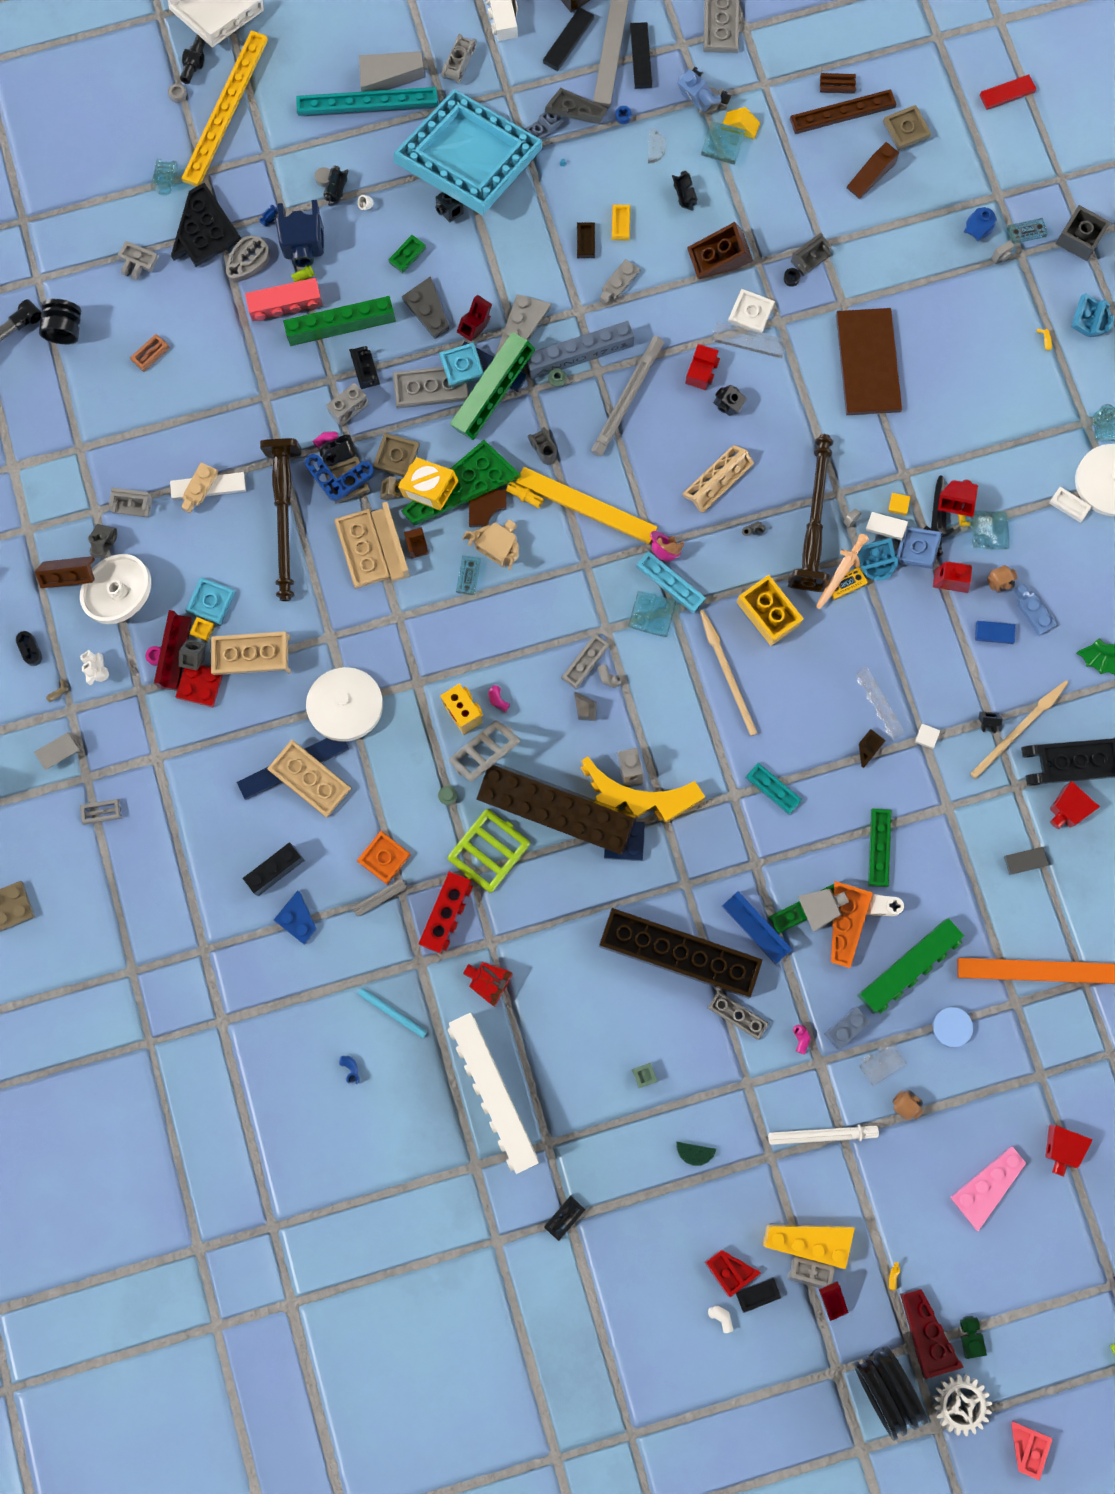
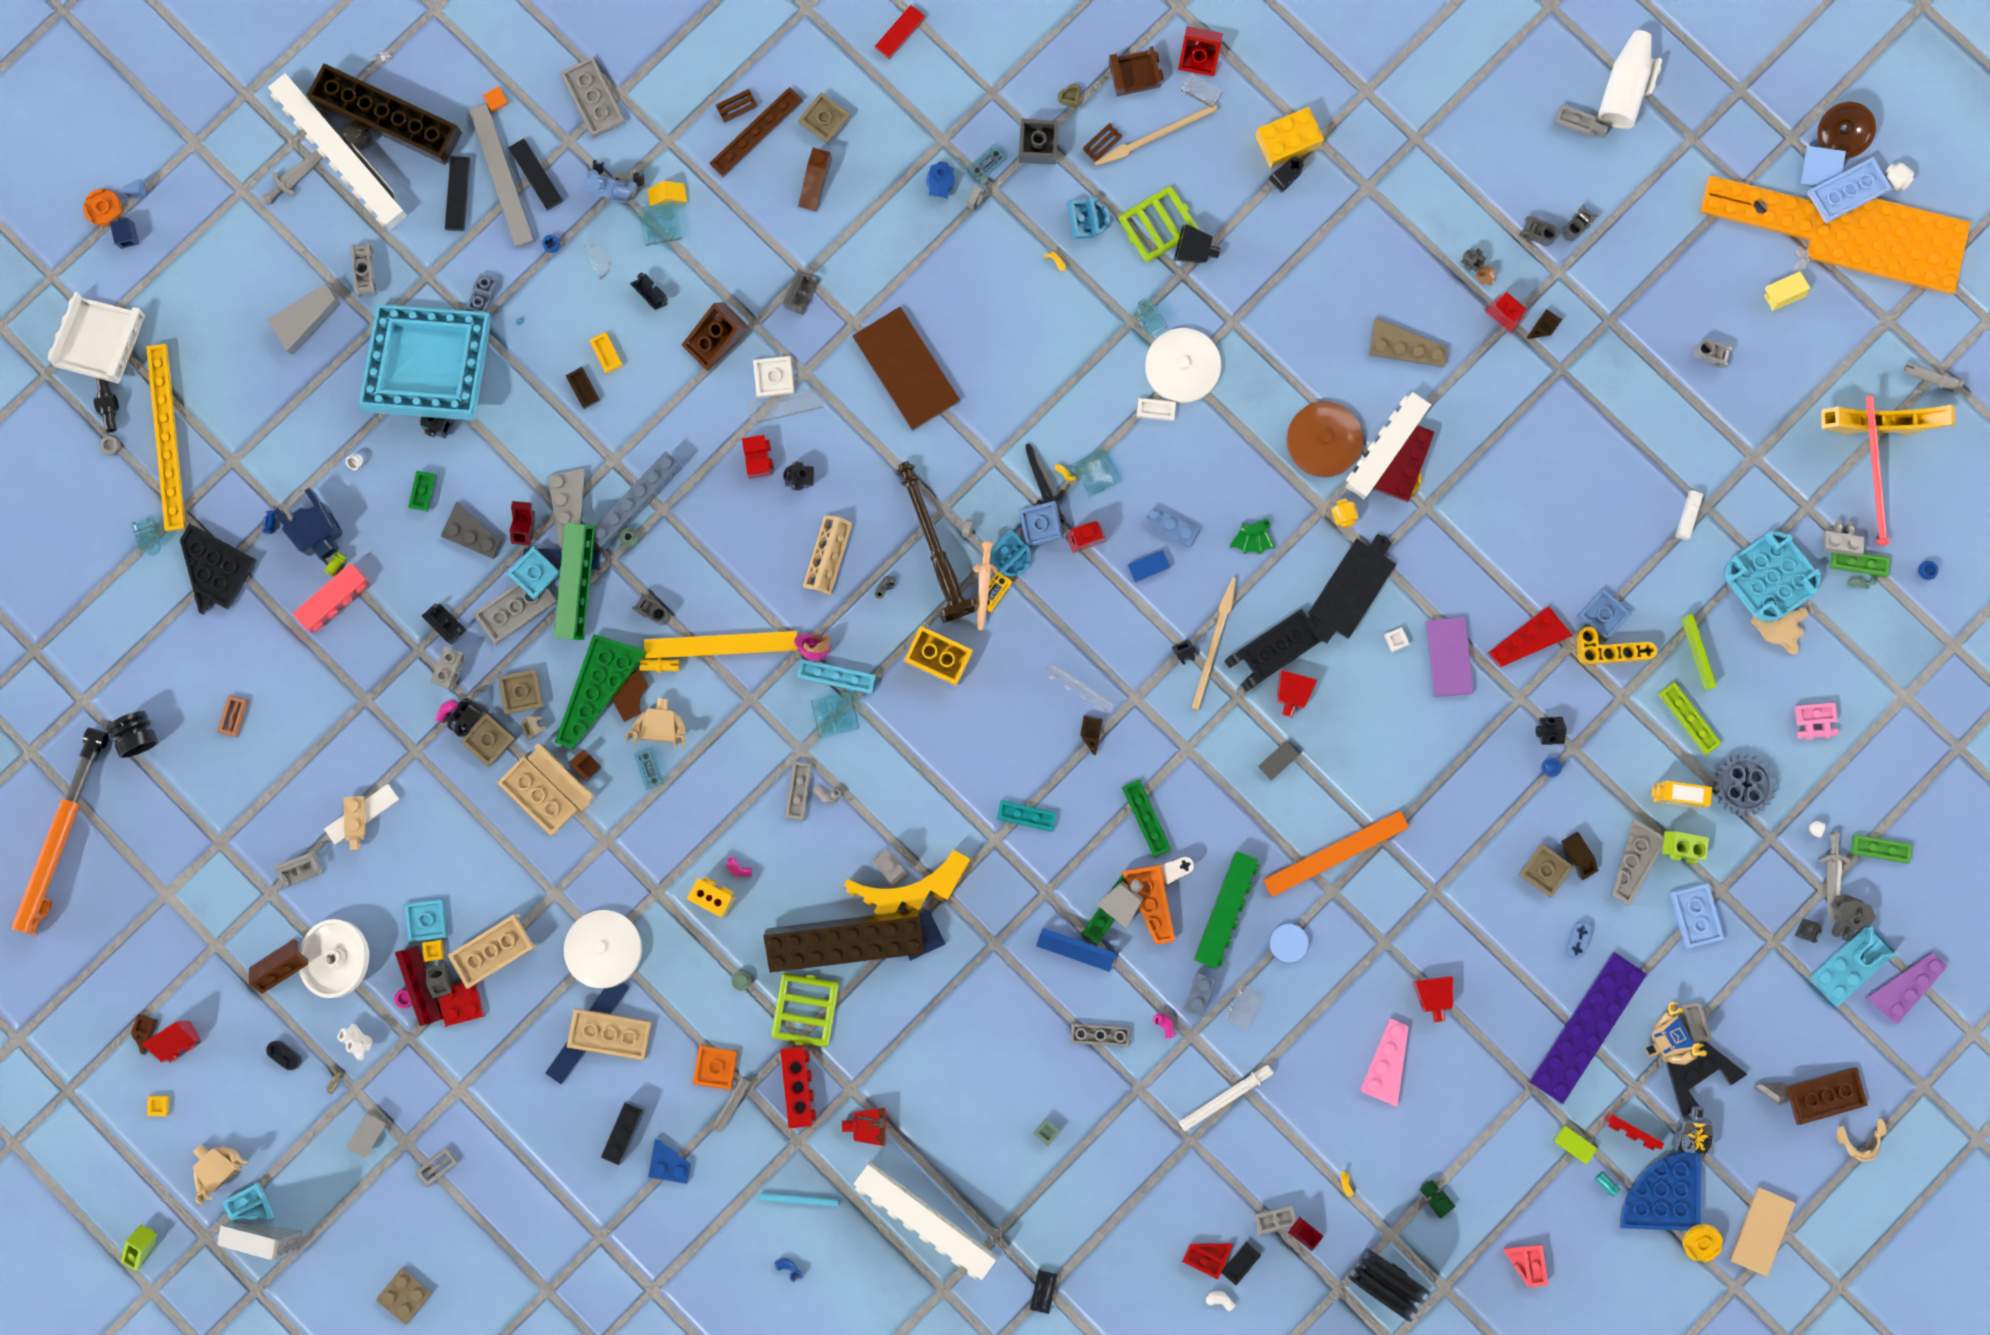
camera: 30 degrees left, 5 degrees up
(101, 540) = (293, 919): dark grey piece -> none
(136, 256) = (168, 629): light grey hinge -> none
(240, 251) = (263, 570): light grey piece -> none
(281, 451) = (435, 785): dark brown piece -> none
(321, 176) = (299, 455): light grey tile -> none
(333, 192) = (319, 468): black hinge -> none
(339, 321) = (395, 591): green brick -> none
(339, 483) = (484, 748): blue beam -> none
(367, 101) = (299, 358): teal plate -> none
(428, 483) = (566, 705): yellow brick -> none
(483, 737) = (759, 938): light grey bar -> none
(574, 106) = (502, 261): dark grey wing -> none
(585, 707) = (821, 834): flat silver piece -> none
(619, 281) = (635, 412): light grey hinge -> none
(627, 396) = (703, 520): light grey piece -> none
(680, 953) = (1021, 1009): dark brown brick -> none
(694, 1154) = (1125, 1175): clear green tile -> none
(714, 640) = (903, 709): tan piece -> none
(792, 271) = (798, 320): black bush -> none
(818, 1243) = (1263, 1194): yellow wedge -> none
(887, 526) = (1003, 519): white tile -> none
(899, 504) = (1003, 491): yellow tile -> none
(907, 1105) = (1284, 1032): medium nougat head -> none
(927, 736) = (1137, 695): white tile -> none
(932, 1347) = (1404, 1222): dark red wing -> none
(959, 498) = (1054, 459): red torso -> none
(970, 1421) = (1444, 1273): white gear -> none
(1002, 579) = (1130, 514): medium nougat head -> none

